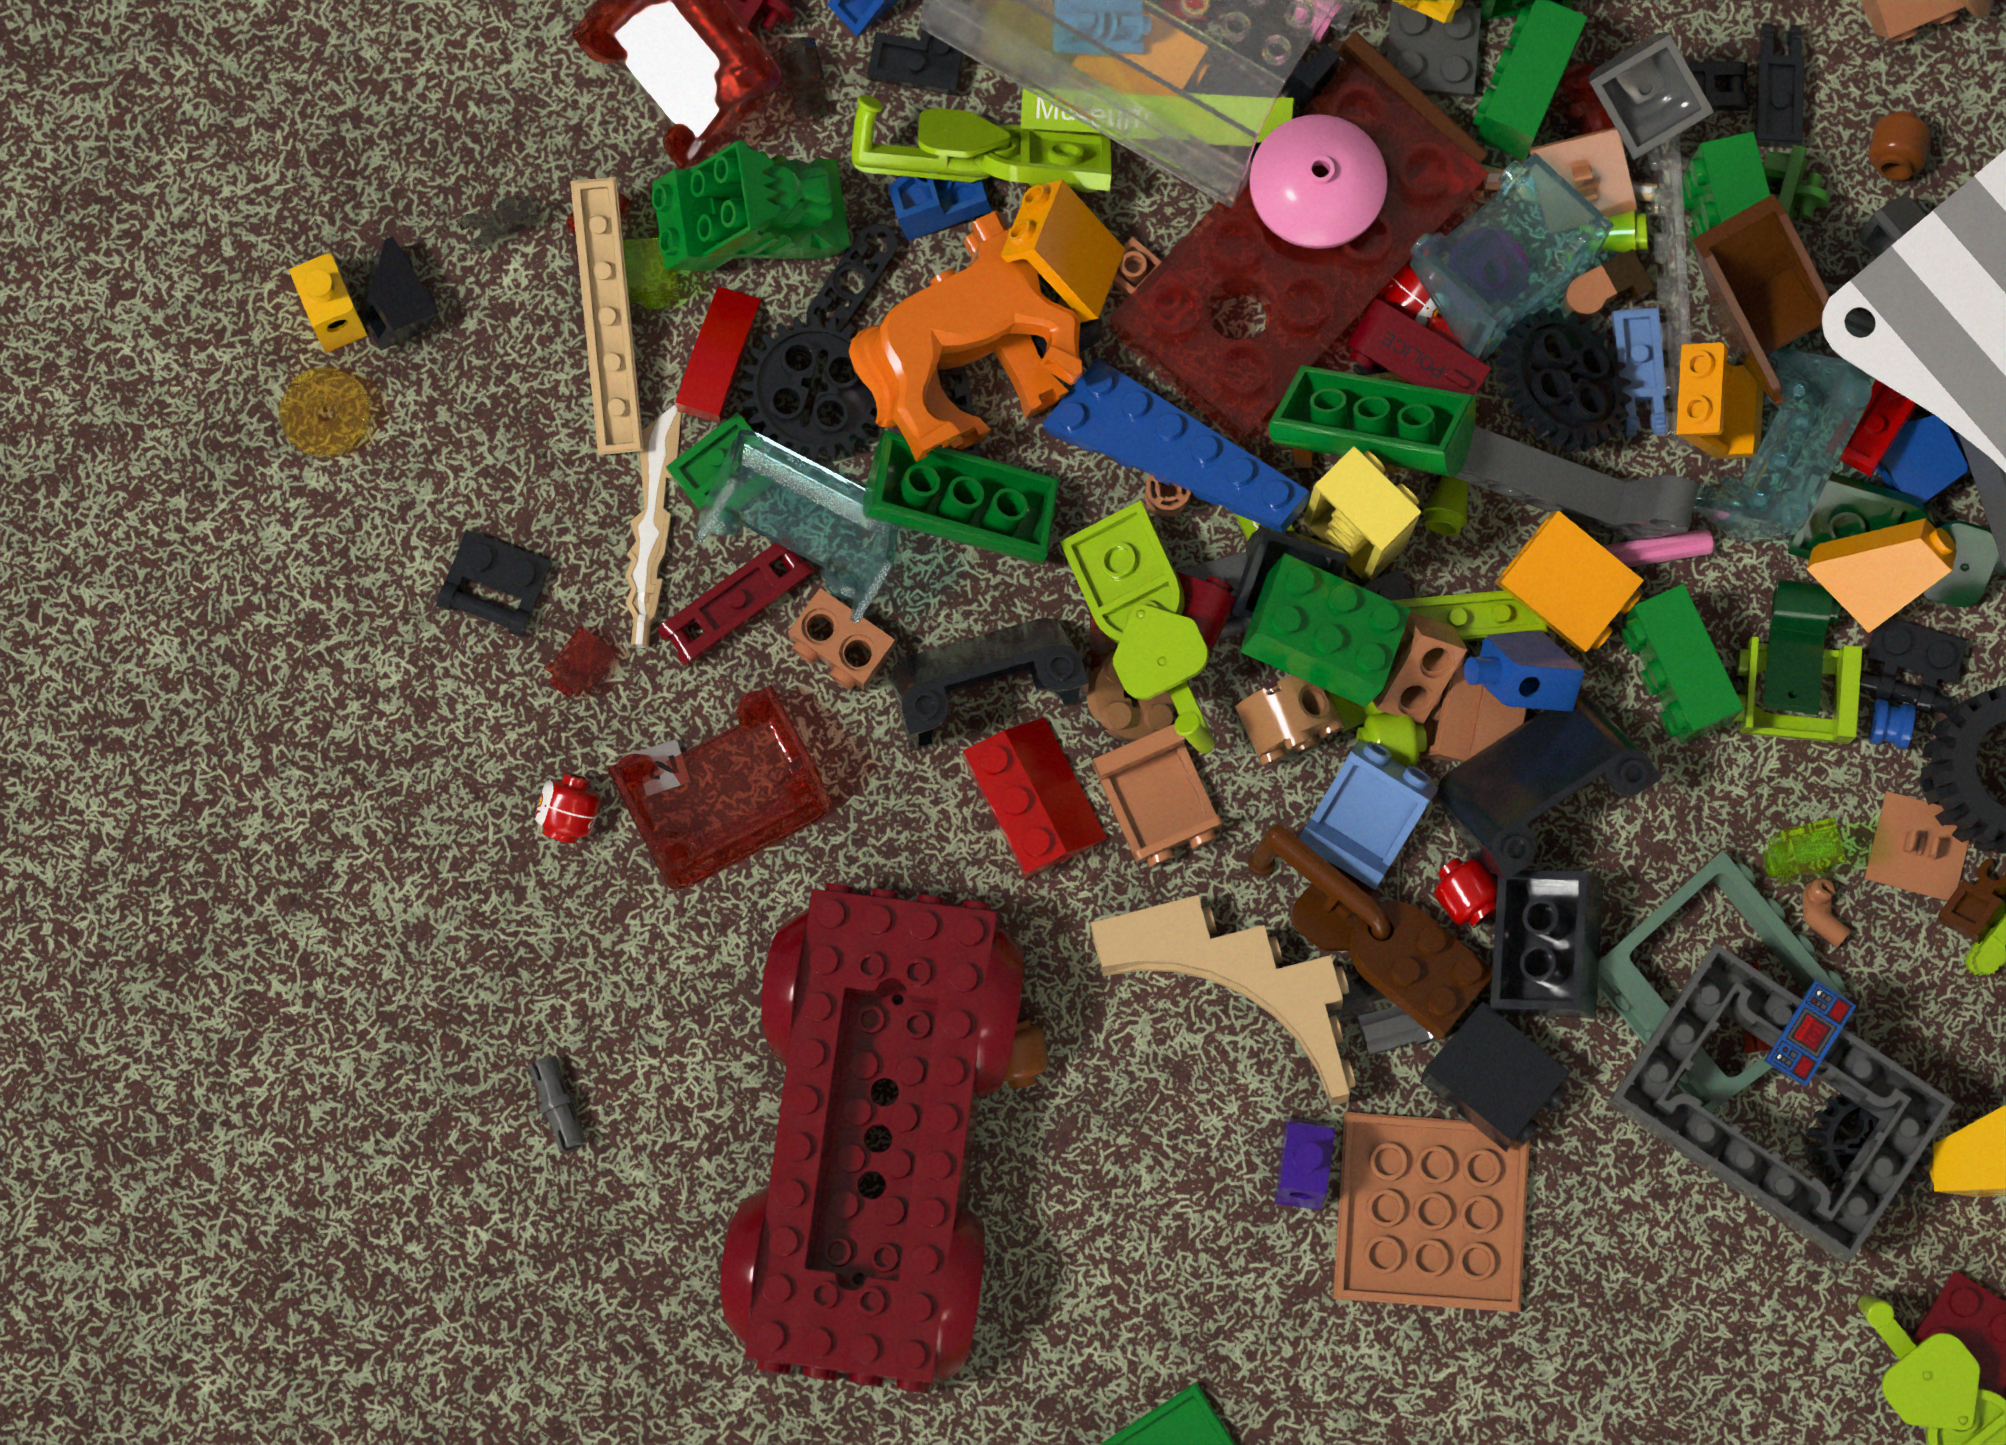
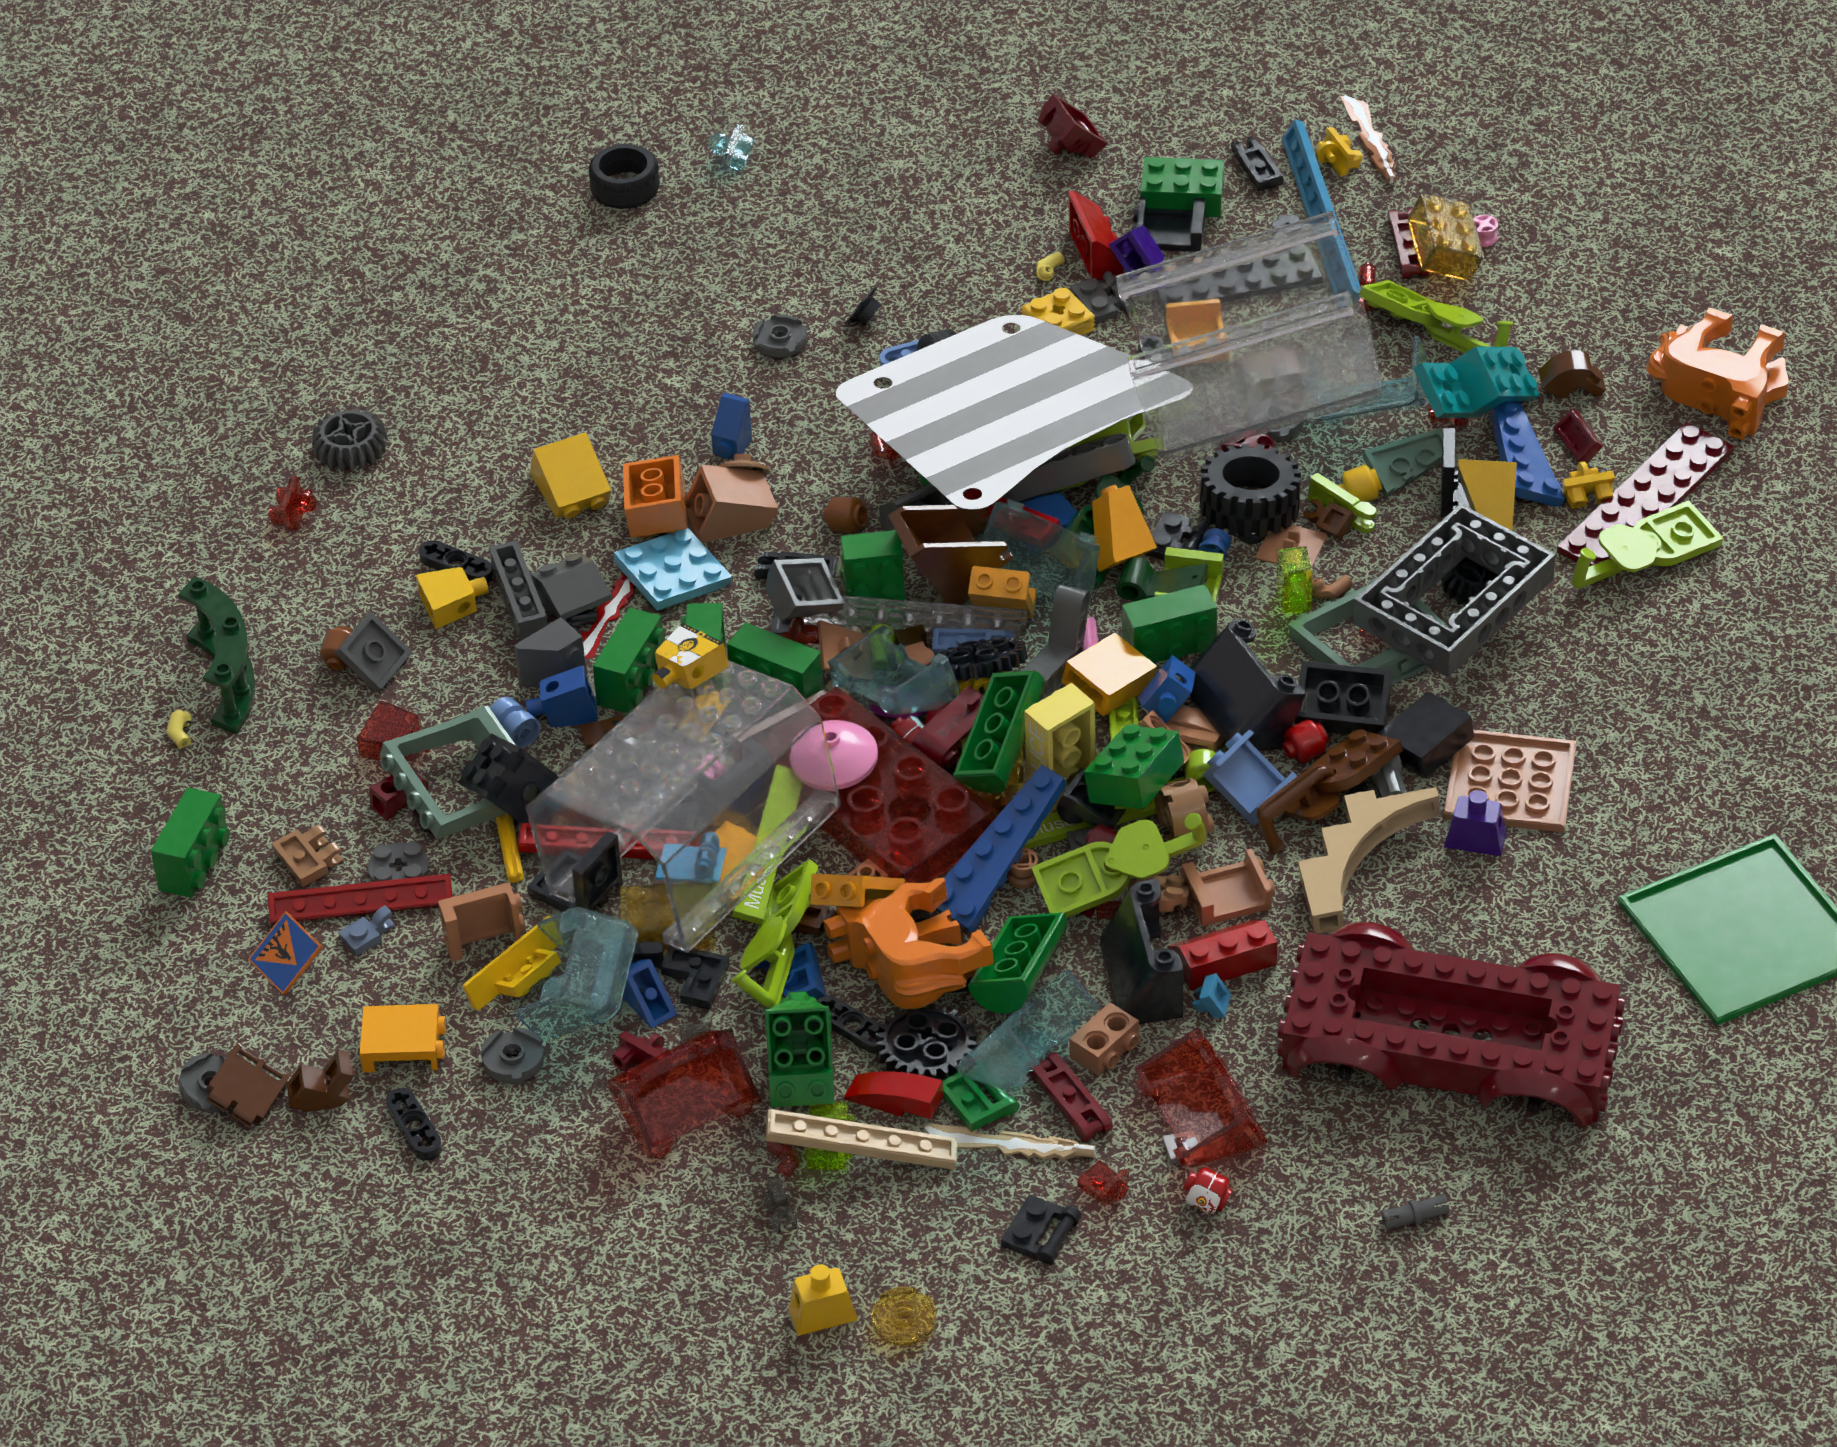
camera: 80 degrees left, 35 degrees down
(394, 299) = (833, 1254): black slope -> none
(938, 791) = (1212, 997): none -> dark azure tile
(1810, 1033) = (1415, 558): tile -> none

